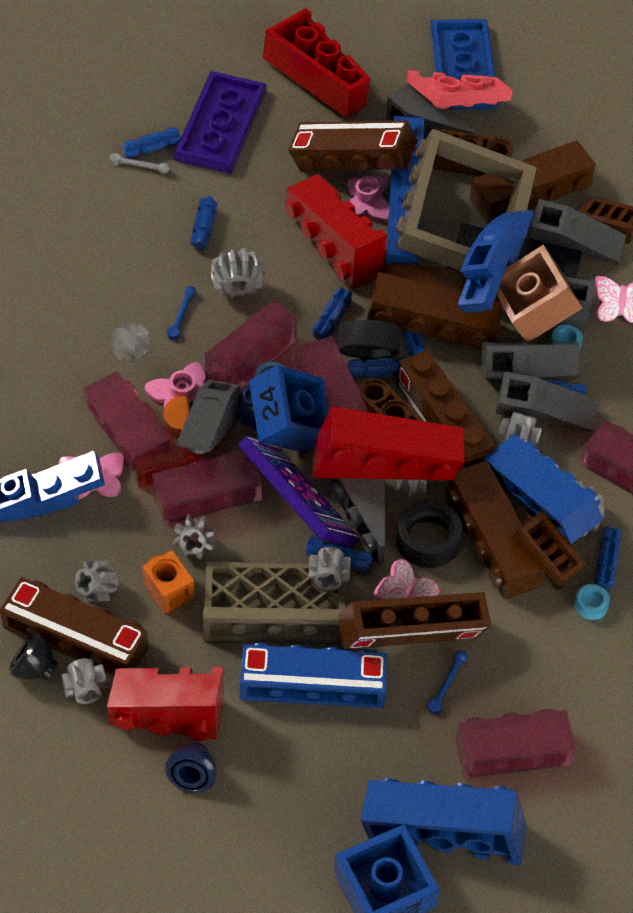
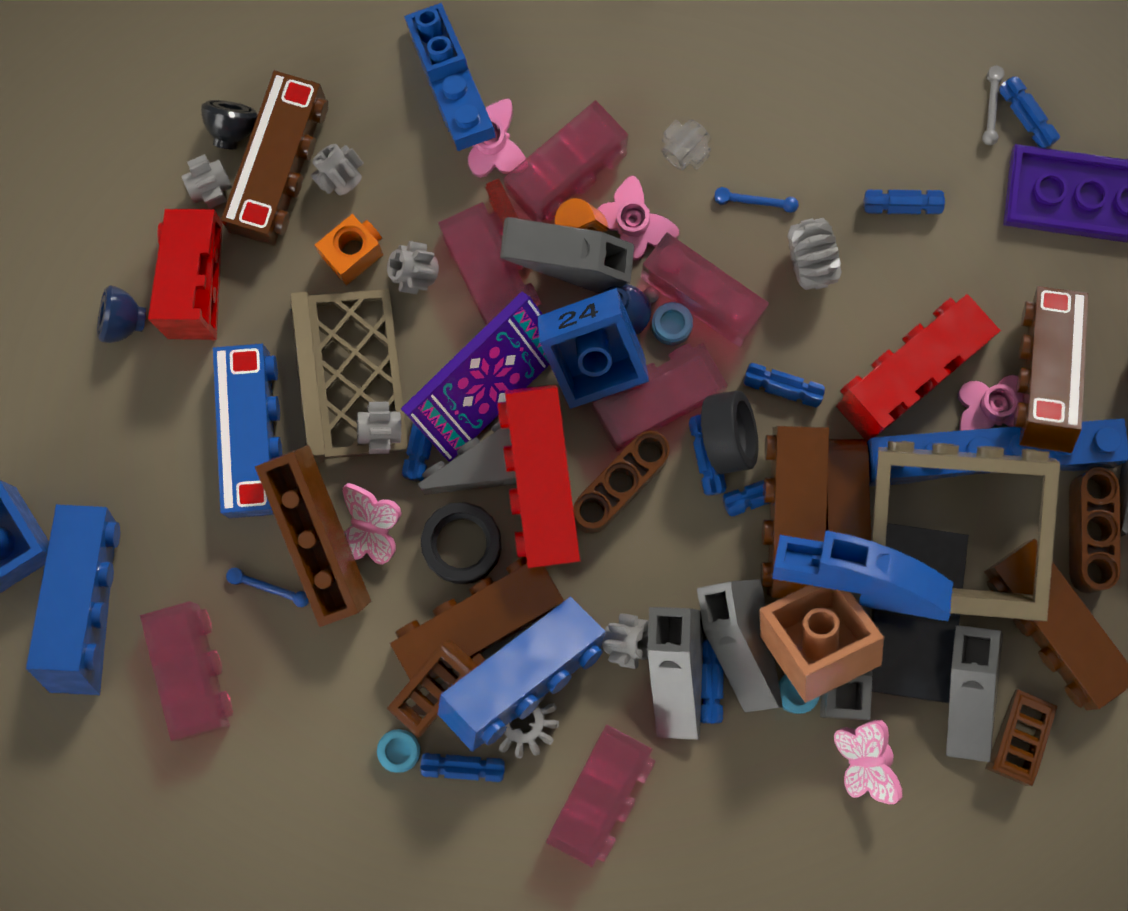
camera: 85 degrees right, 25 degrees up
(440, 403) = (640, 542): reddish brown brick -> none

